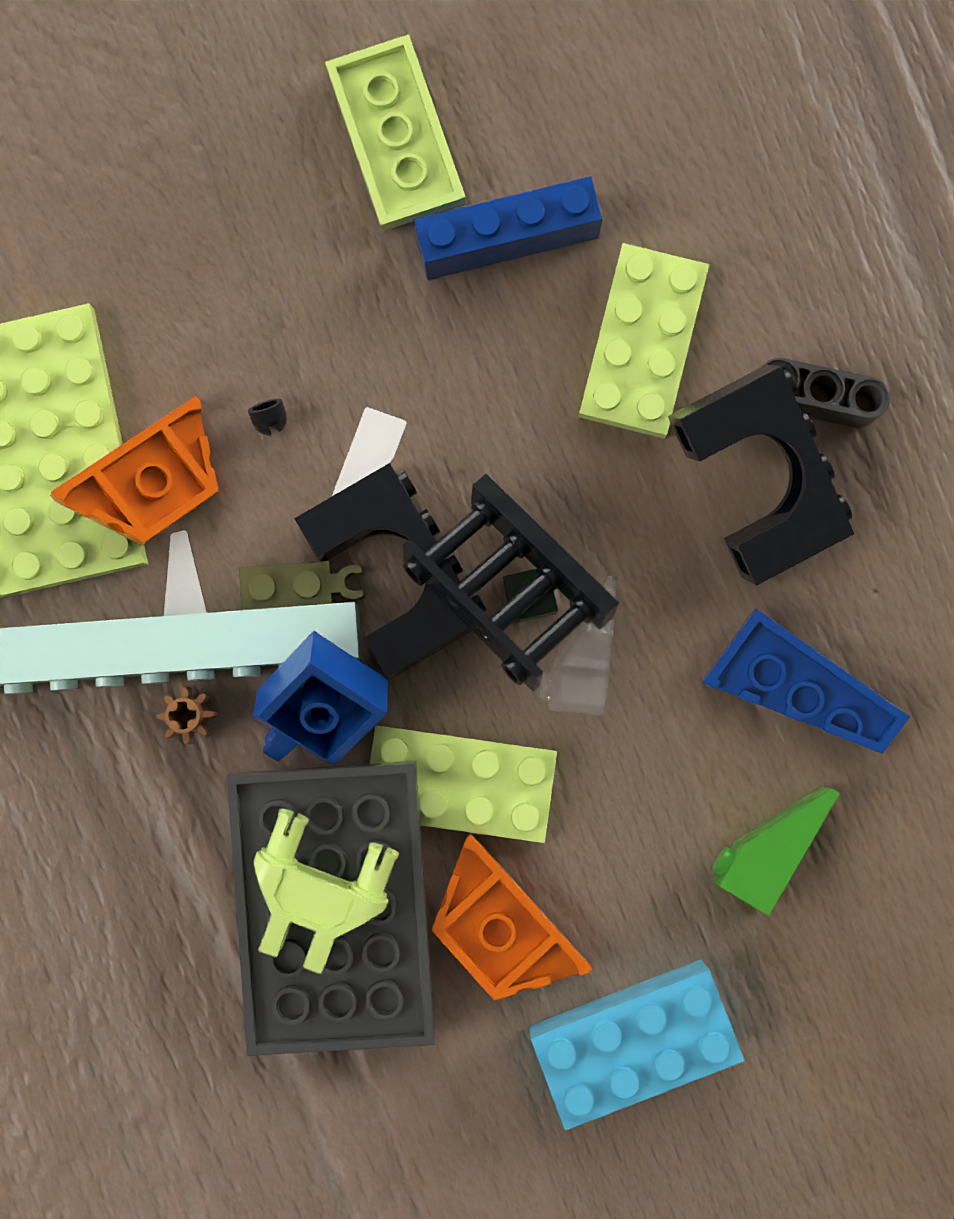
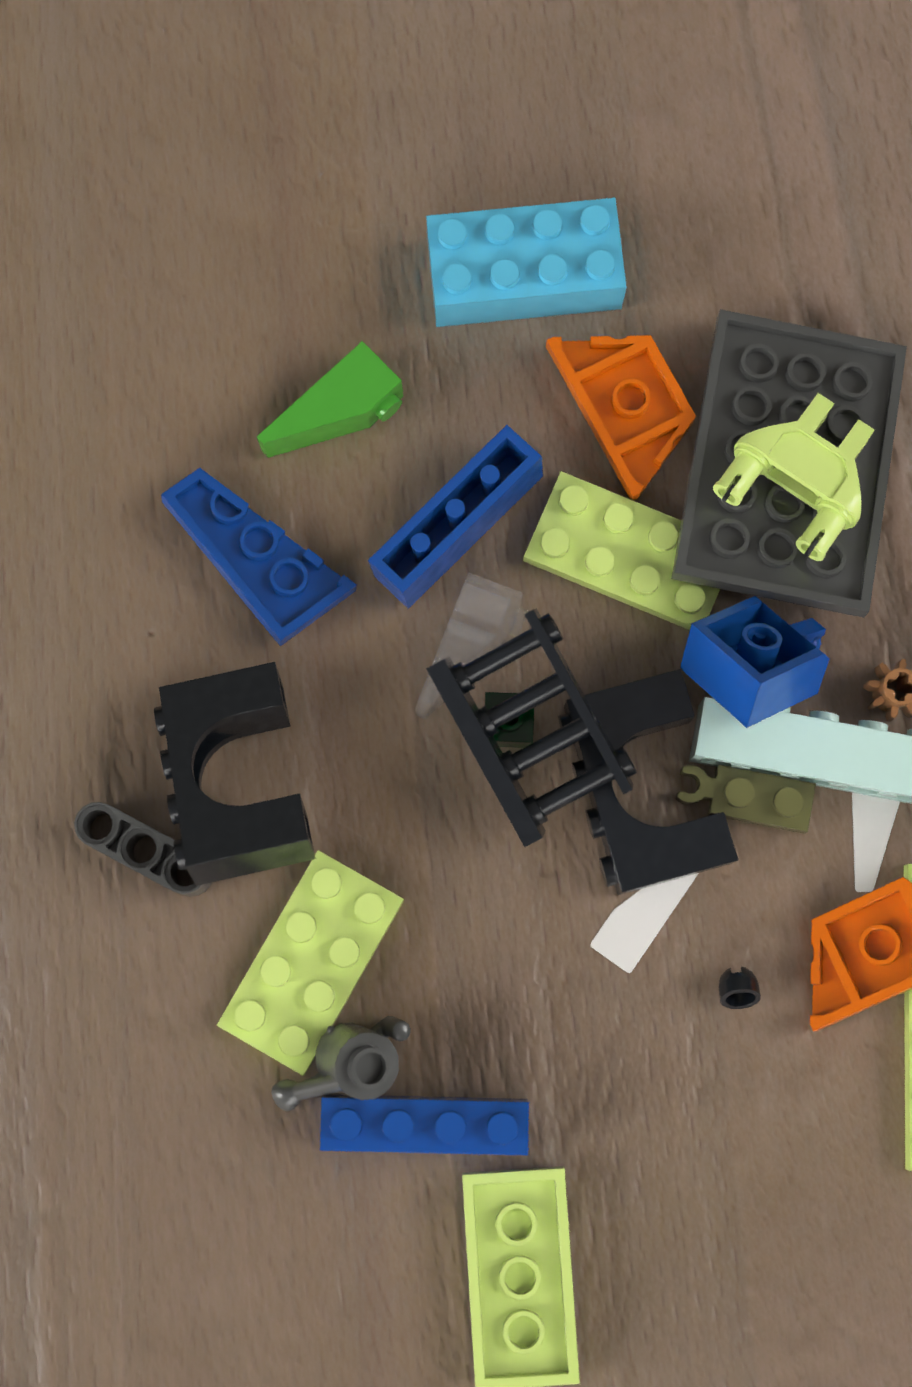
camera: 170 degrees left, 5 degrees down
(583, 259) = (349, 1061): none -> dark grey piece
(629, 767) = (457, 516): none -> blue brick

